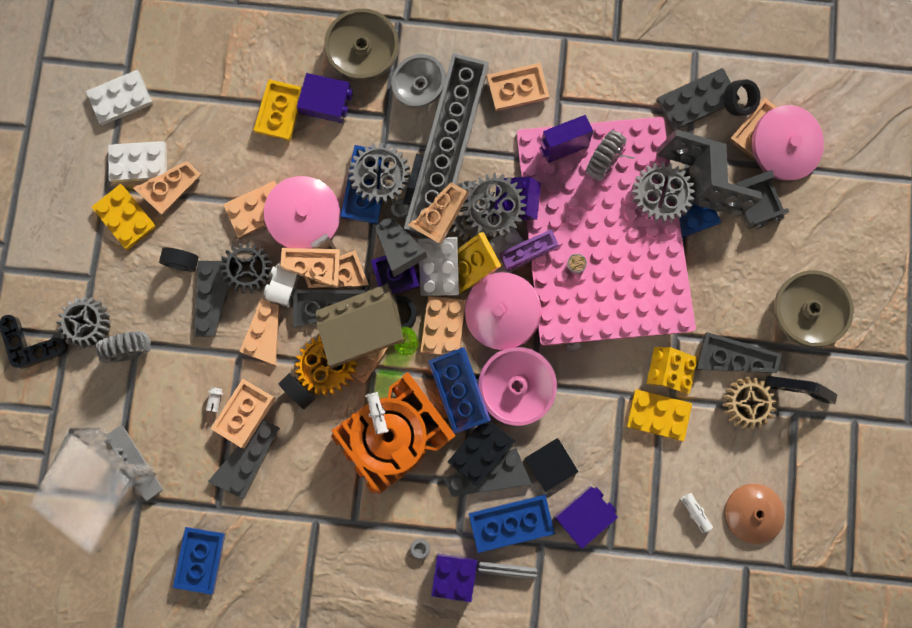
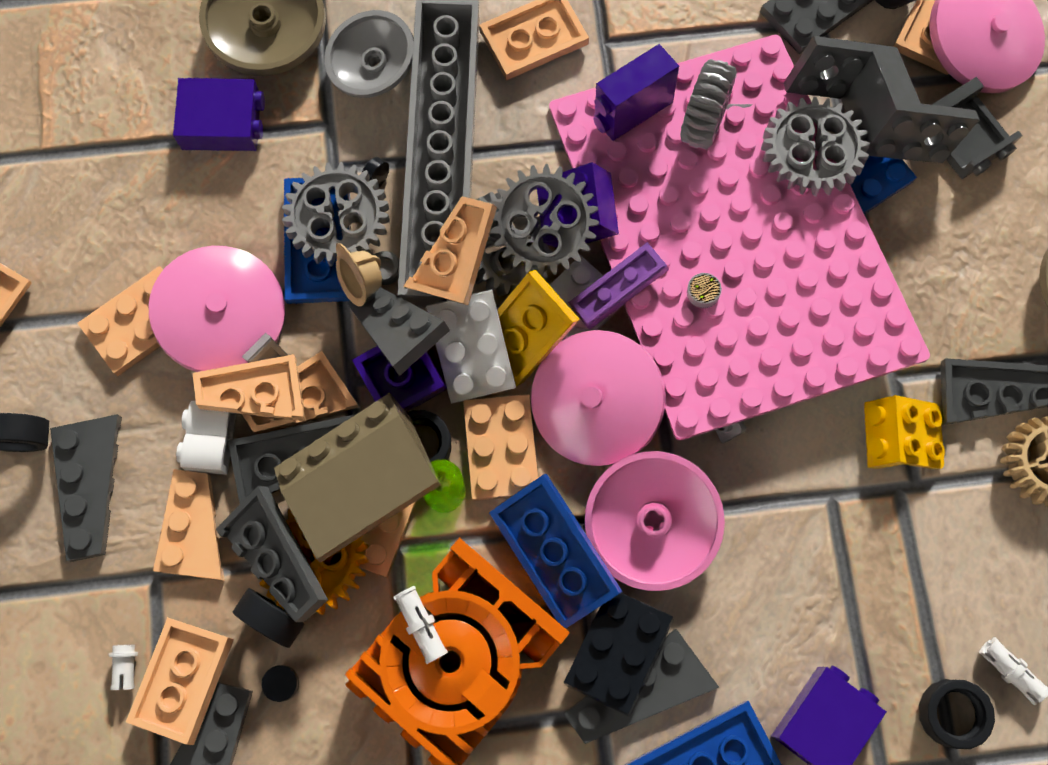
camera: 15 degrees left, 5 degrees down
(256, 255) = (128, 434): dark grey gear -> none
(278, 110) = (143, 150): yellow plate -> none
(295, 427) = (280, 683): none -> black tile
(306, 357) = (270, 547): none -> dark grey wing
(384, 212) = (358, 274): none -> tan piece
(408, 151) = (377, 169): none -> black tile
(413, 179) = (395, 211): black tile -> none
(551, 464) = (744, 645): black tile -> none
(659, 415) = (903, 516): yellow plate -> none
(673, 528) = (983, 708): none -> black tyre

